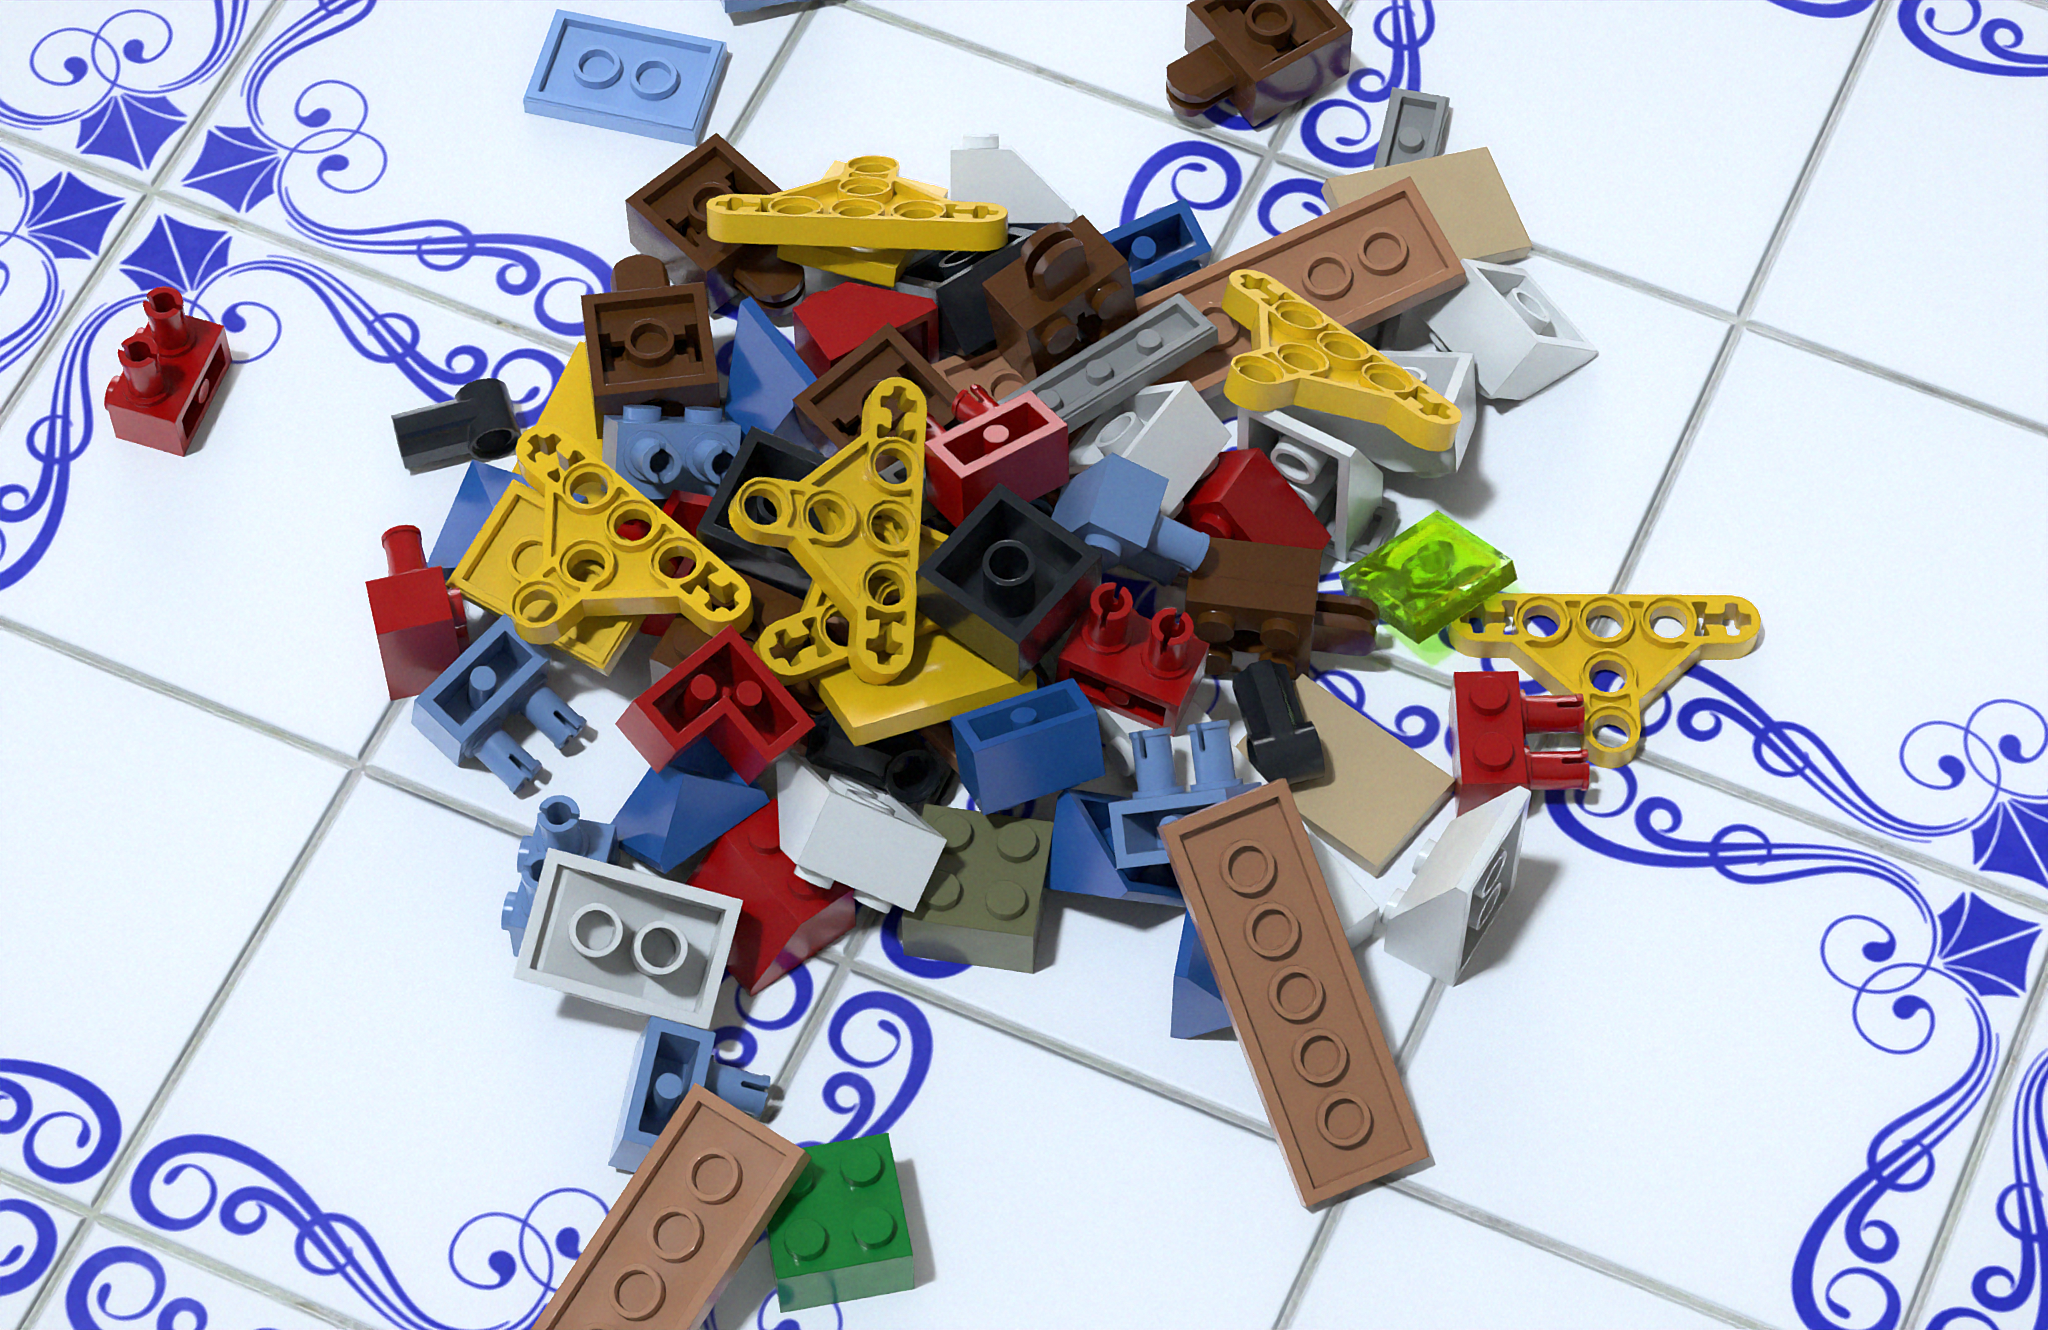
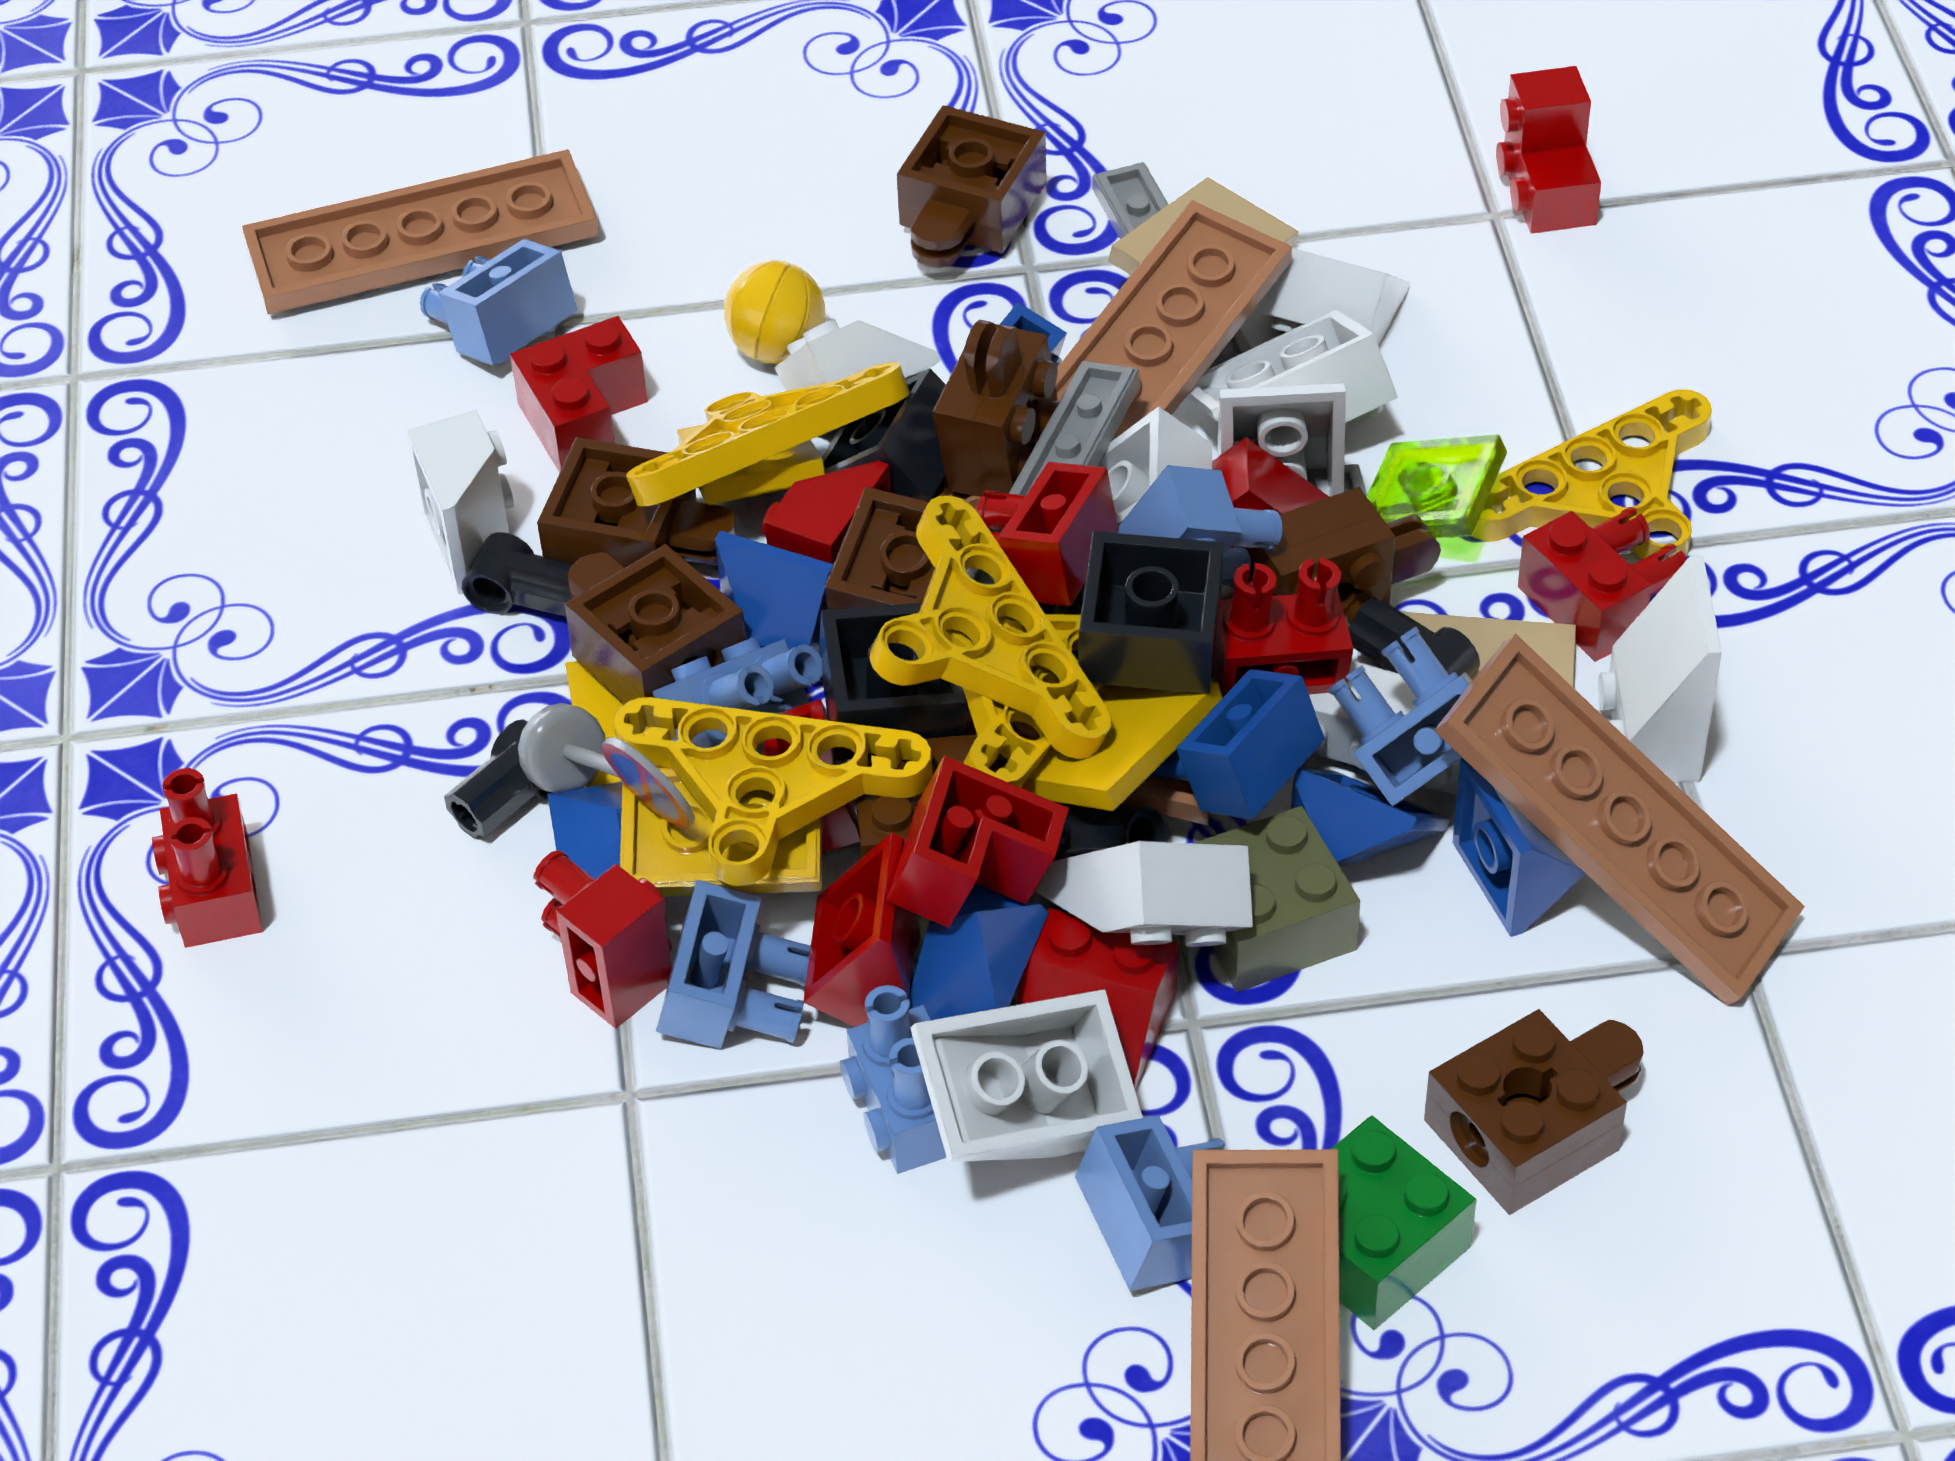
camera: 30 degrees left, 10 degrees down
(489, 433) = (567, 748): none -> light grey piece
(592, 755) = (860, 937): none -> red slope
(593, 137) = (460, 487): none -> white slope
(593, 232) = (512, 574): none -> black piece
(625, 77) = (382, 458): light blue tile -> none
(774, 70) = (577, 383): none -> red brick
(990, 87) = (772, 308): none -> yellow piece
(1057, 1226) = (1561, 1111): none -> reddish brown brick
(1320, 365) = (1238, 355): yellow beam -> none
(1819, 286) = (1547, 150): none -> red brick

